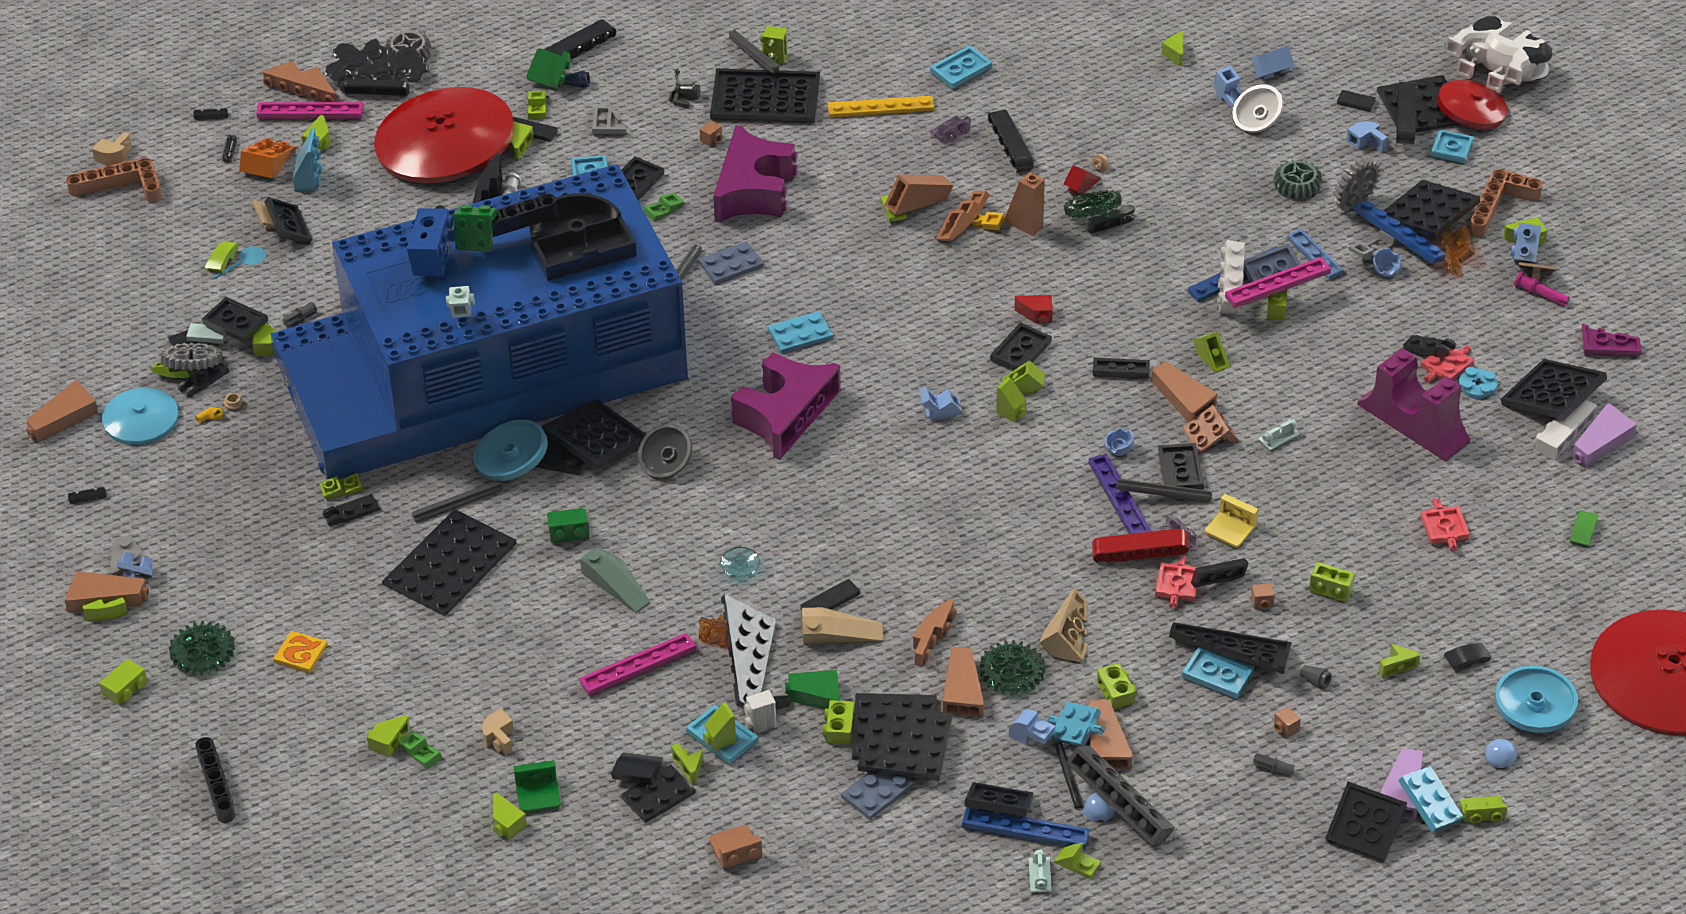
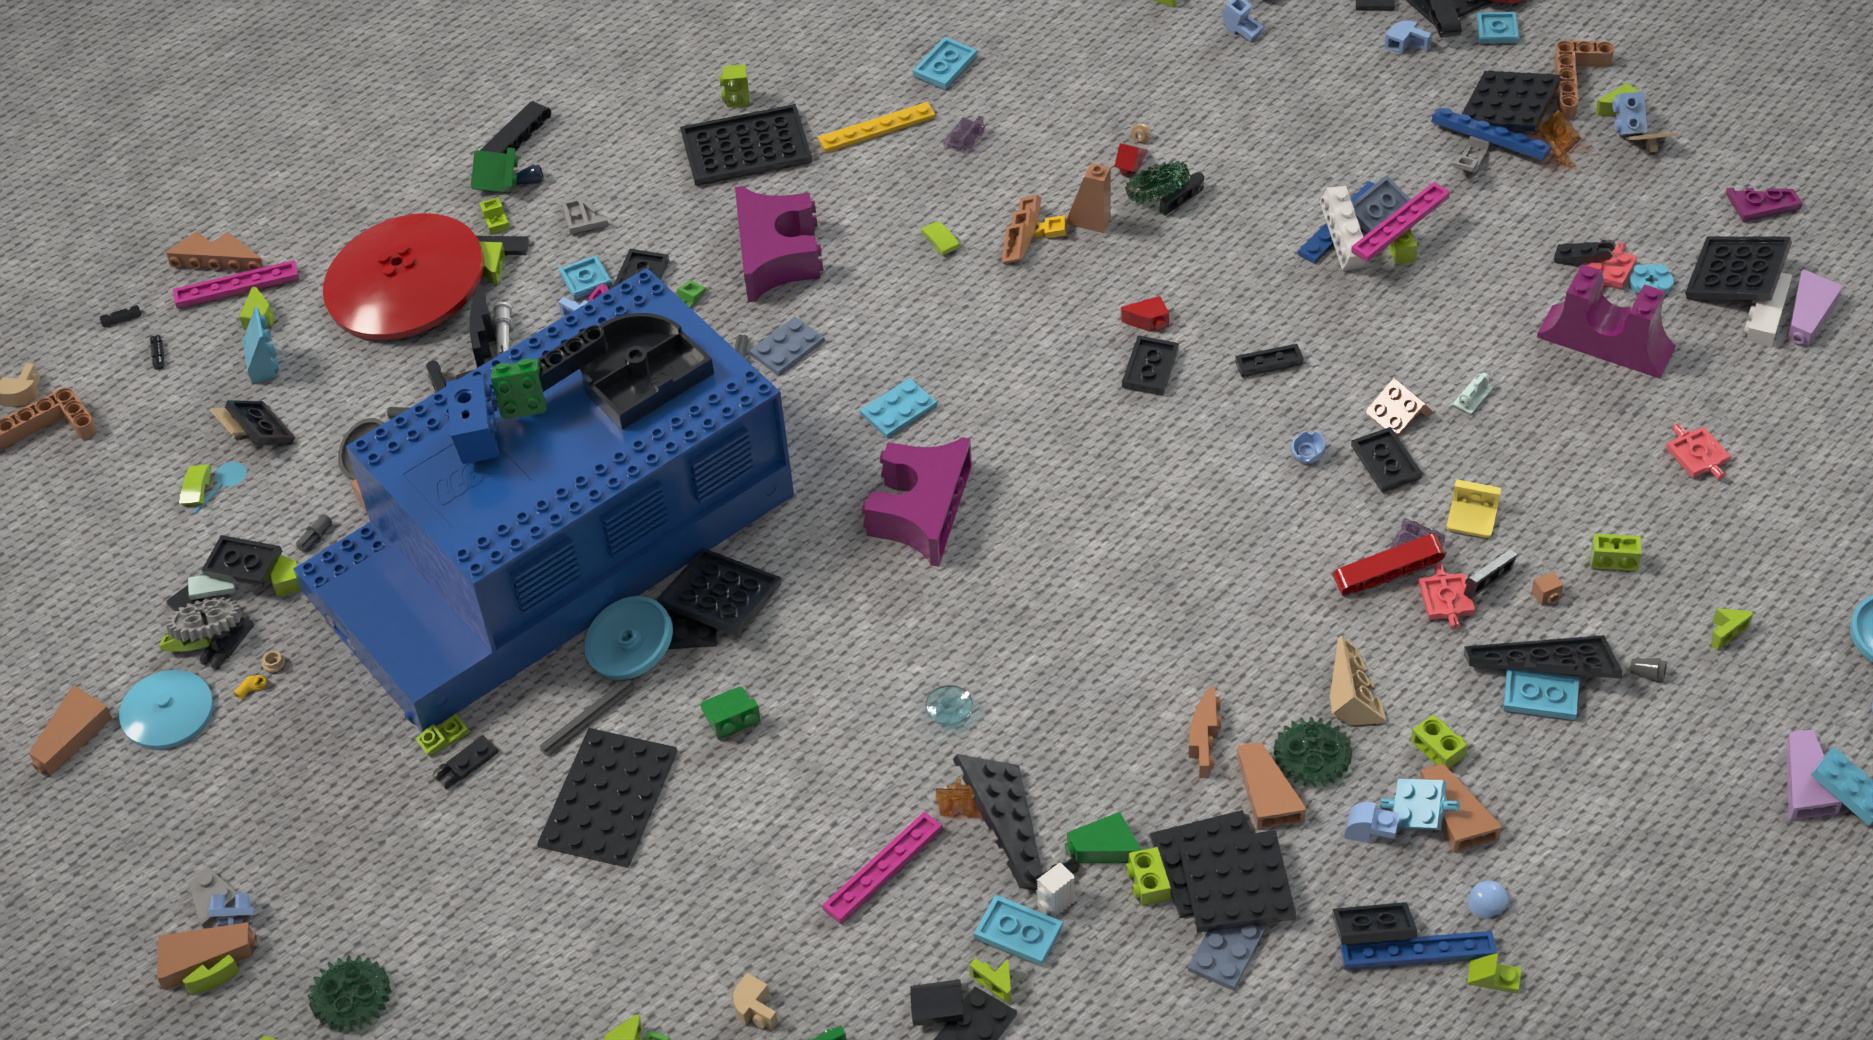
camera: 15 degrees left, 5 degrees up
(87, 495) = (135, 829): black axle -> none
(265, 158) = (204, 353): orange slope -> none
(300, 651) = (471, 963): yellow tile -> none
(374, 61) = (289, 211): black plant -> none
(409, 38) = (323, 185): light grey gear -> none
(460, 301) = (535, 483): light aqua brick -> none
(613, 577) = (811, 764): sand green wedge -> none
(659, 445) = (799, 583): dark grey dish -> none
(687, 90) = (659, 159): pearl dark grey piece -> none
(711, 133) = (704, 202): nougat plate -> none
(720, 728) = (1021, 926): lime slope -> none
(753, 51) = (714, 98): dark grey axle -> none
(831, 626) = (1088, 757): tan wedge -> none
(834, 596) = (1069, 723): black tile -> none
(917, 191) = (963, 214): nougat slope -> none
(940, 406) = (1093, 456): light blue brick -> none
(1010, 401) = (1170, 431): lime slope -> none
(1011, 140) = (1035, 131): black beam -> none
(1027, 378) = (1170, 401): lime slope -> none
(1040, 872) = (1459, 1004): light aqua hinge -> none
(1068, 775) = (1433, 868): black bar -> none
(1120, 500) = (1336, 511): dark purple plate -> none
(1120, 795) = (1511, 879): dark grey brick -> none
(1164, 490) = (1382, 491): dark grey axle -> none
(1183, 391) = (1349, 371): nougat slope -> none
(1211, 351) = (1358, 316): lime slope -> none
(1254, 103) = (1275, 27): white dish -> none
(1273, 764) = (1655, 790): dark grey axle -> none
(1286, 722) = (1645, 734): nougat plate -> none
(1298, 179) = (1357, 101): sand green gear -> none
(1312, 251) = (1404, 175): medium blue tile -> none
(1357, 184) = (1429, 92): light grey gear -> none
(1366, 821) = (1794, 833): black plate -> none
(1386, 260) = (1495, 168): light blue hair -> none
(1464, 656) = (1797, 598): black slope -> none
(1535, 286) = (1656, 159): dark pink pin -> none
(1584, 528) = (1844, 417): bright green slope -> none

